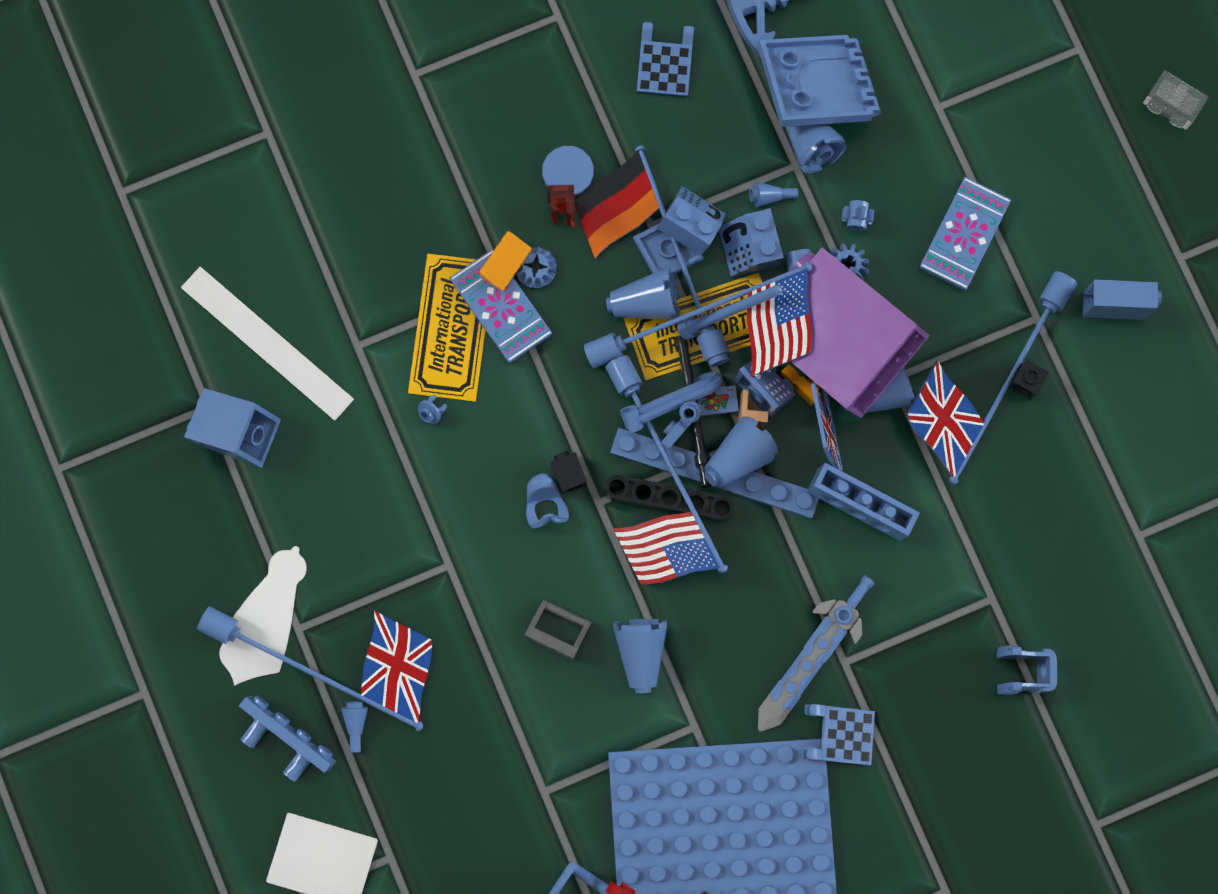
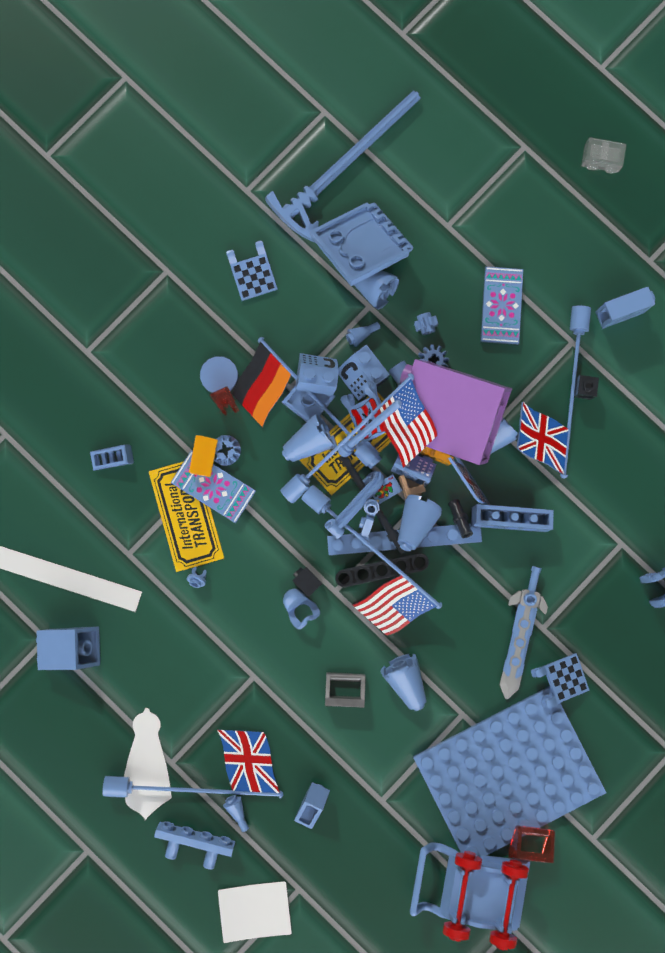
camera: 20 degrees left, 5 degrees up
(407, 227) = (124, 457): none -> medium blue slope
(453, 756) = (312, 805): none -> medium blue slope
(724, 287) = (363, 409): none -> medium blue flag
(797, 476) = (460, 518): none -> black pin

